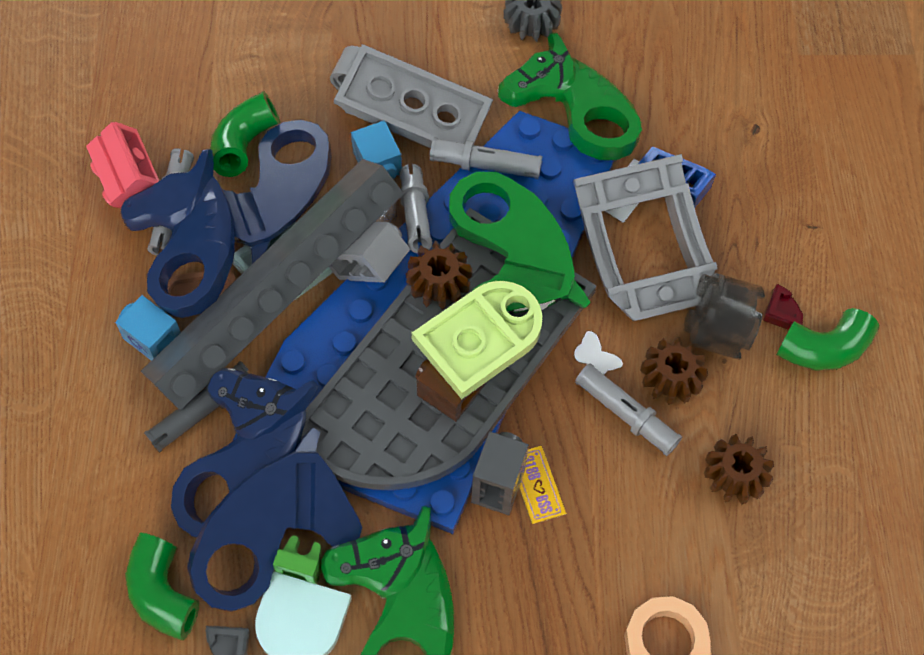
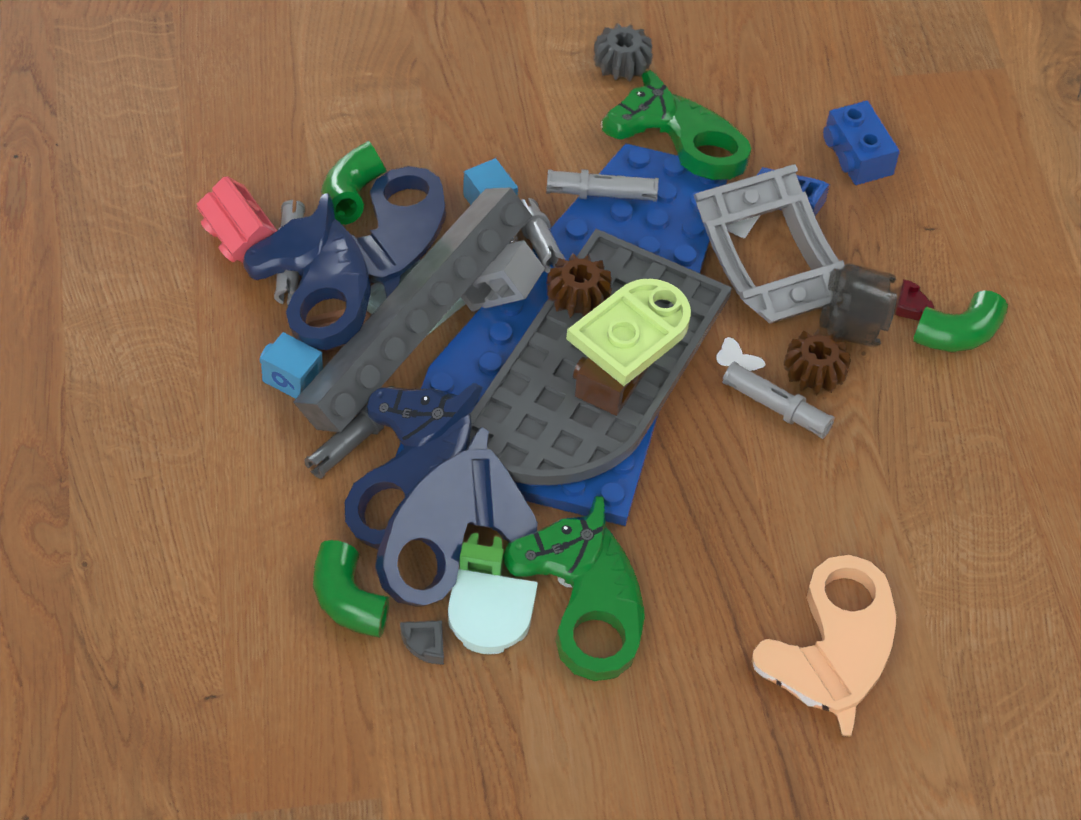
camera: 10 degrees left, 10 degrees down
(375, 90) = (484, 130): light grey hinge -> none
(499, 472) = (665, 458): dark grey brick -> none
(526, 236) = (655, 245): green animal -> none
(539, 488) = (699, 476): yellow sticker -> none
(735, 483) = (893, 441): reddish brown gear -> none
(755, 129) = (861, 142): none -> blue brick

